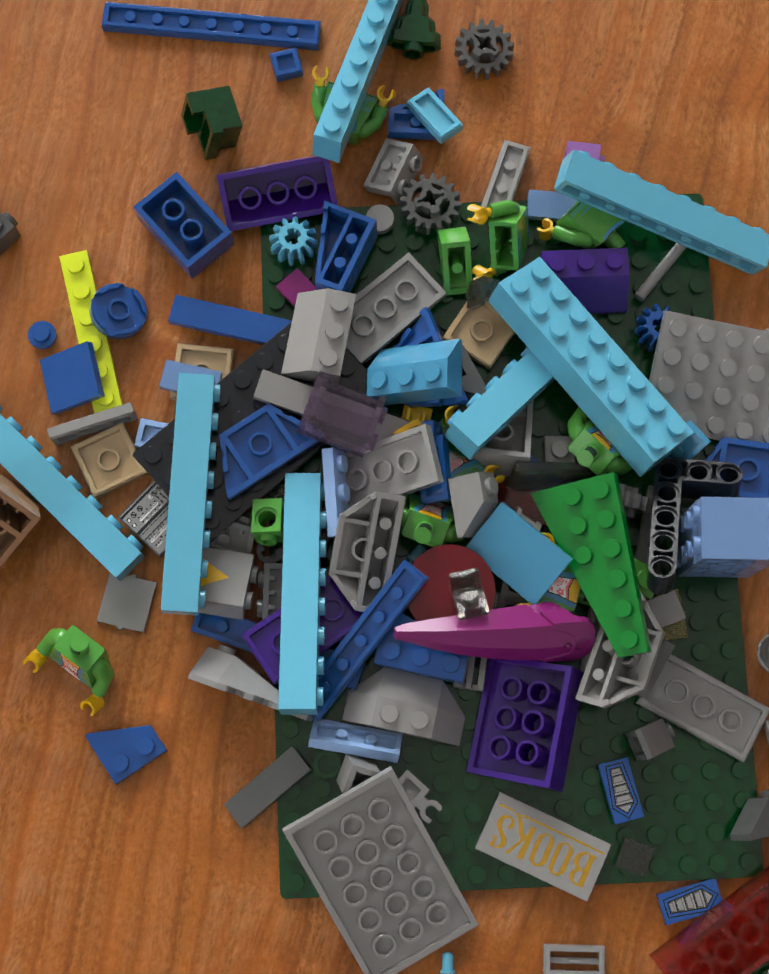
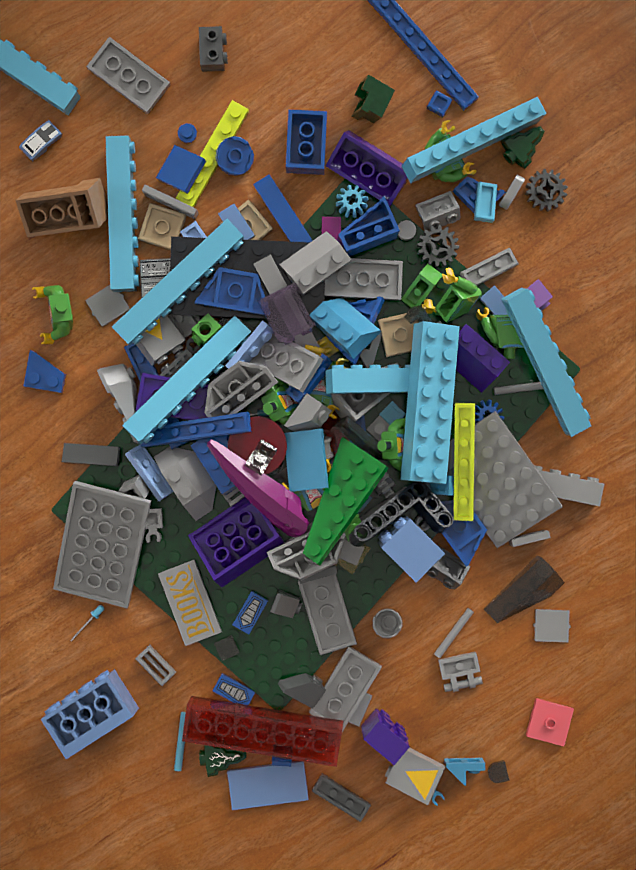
camera: 45 degrees right, 10 degrees up
(450, 83) = (511, 192): none -> light grey beam
(555, 421) = (392, 413): none -> medium azure tile
(687, 393) = (464, 461): none -> neon yellow plate

